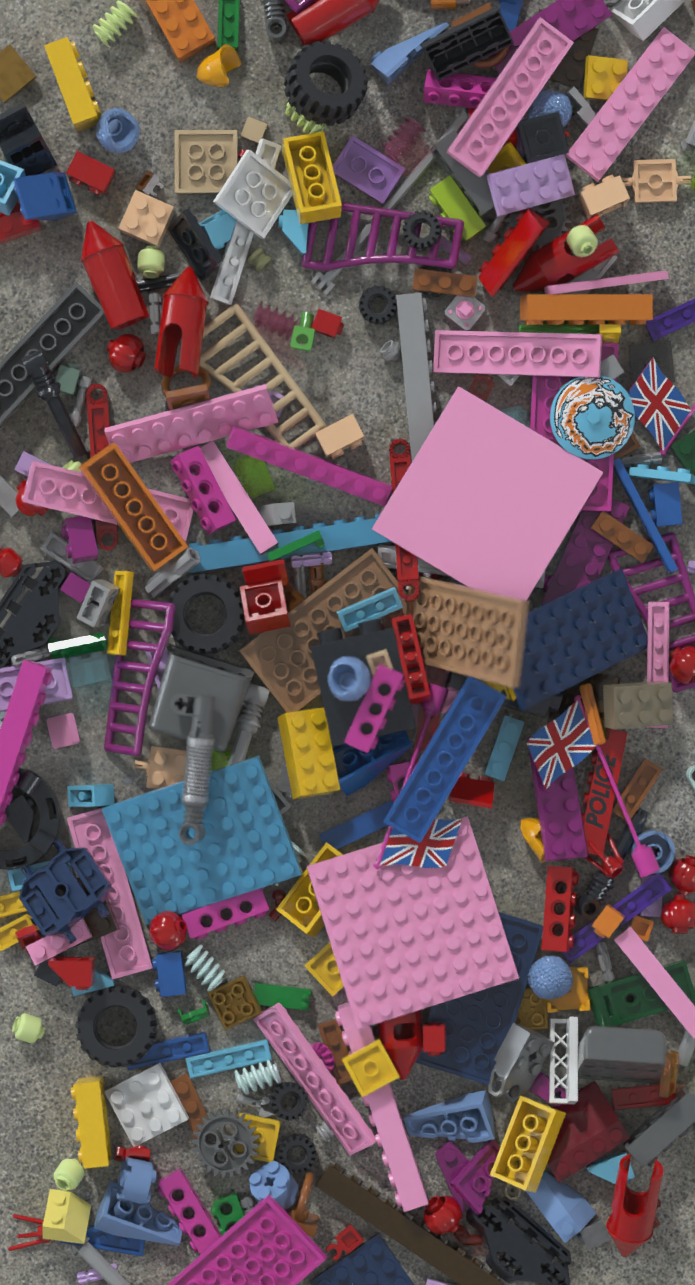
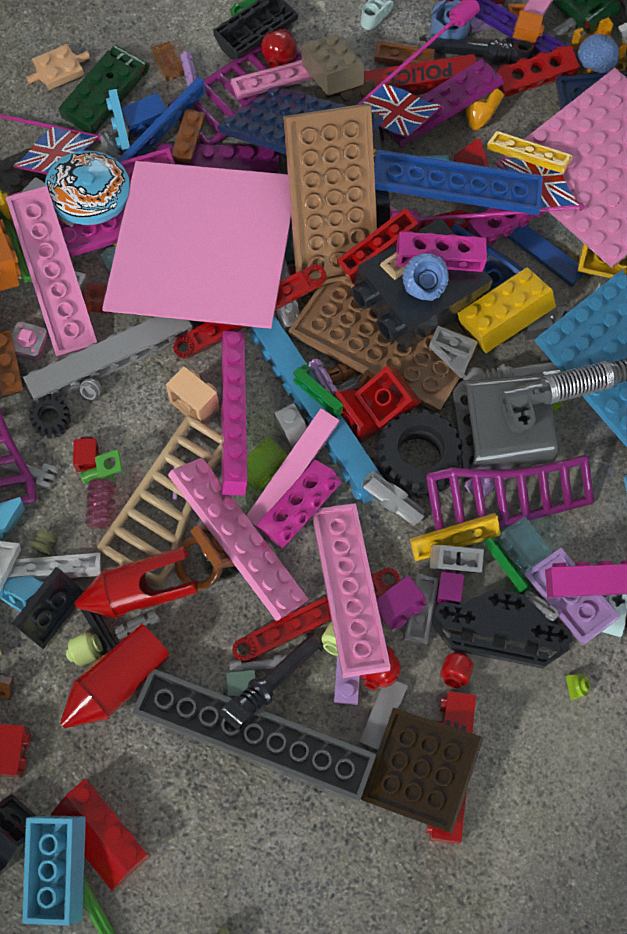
camera: 110 degrees left, 20 degrees down
(45, 196) = (50, 784): blue slope -> none
(63, 730) = (597, 544): bright pink piece -> none
(126, 353) = (189, 636): red plant -> none
(133, 506) = (345, 556): orange brick -> none
(146, 219) = (39, 670): light nougat brick -> none
(164, 766) = (581, 434): light nougat plate -> none
(291, 688) = (453, 349): none -> light grey wing
(369, 609) = (347, 309): medium azure plate -> none
(457, 847) = (529, 152): none -> yellow tile
(592, 714) = (362, 91): orange axle -> none
(611, 866) = (478, 40): red plant -> none

